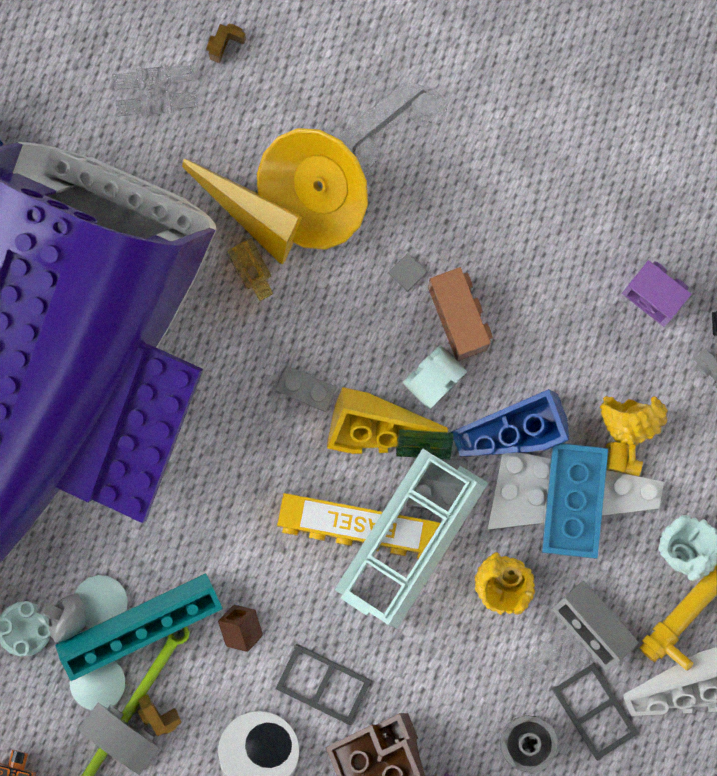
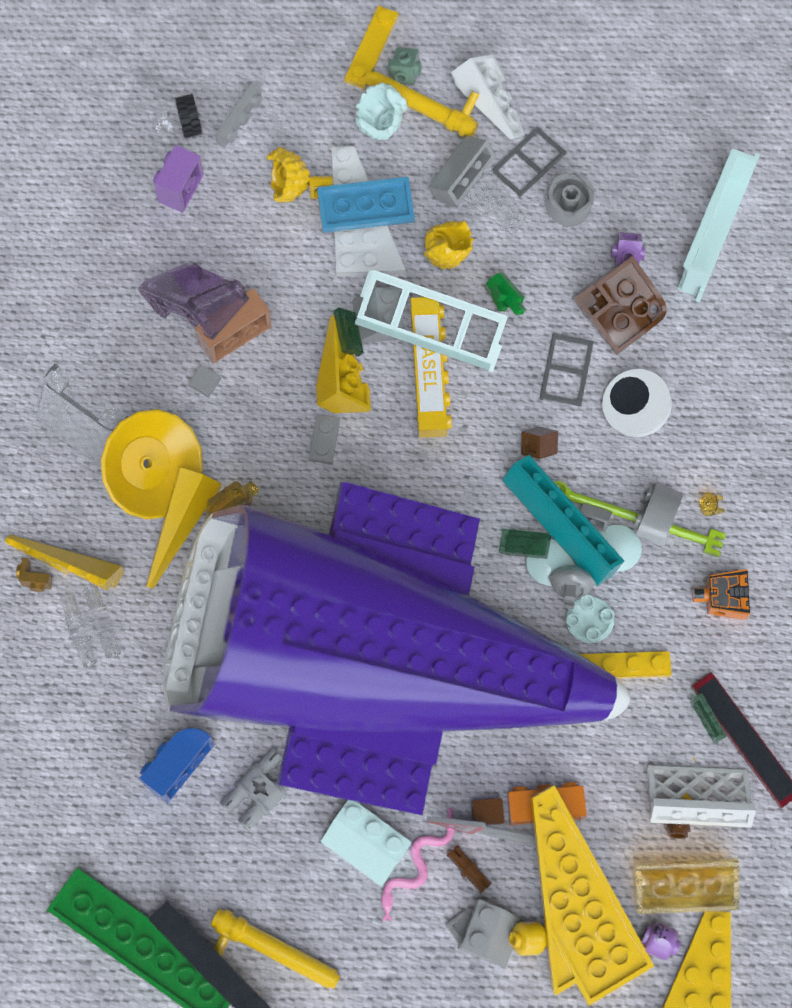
camera: 100 degrees left, 10 degrees down
(126, 579) = (525, 543): none -> clear green tile
(137, 666) = (597, 517): none -> light grey piece
(161, 724) = (634, 487): pearl gold bracket -> none
(218, 98) = (91, 569): none -> yellow wedge
(427, 637) = (505, 294): none -> green rock
(434, 377) = (290, 332): light aqua brick -> none
(496, 276) = (195, 295): none -> clear purple windscreen
(522, 427) = (316, 258): blue wedge -> none
(633, 466) = (324, 170): yellow hand -> none

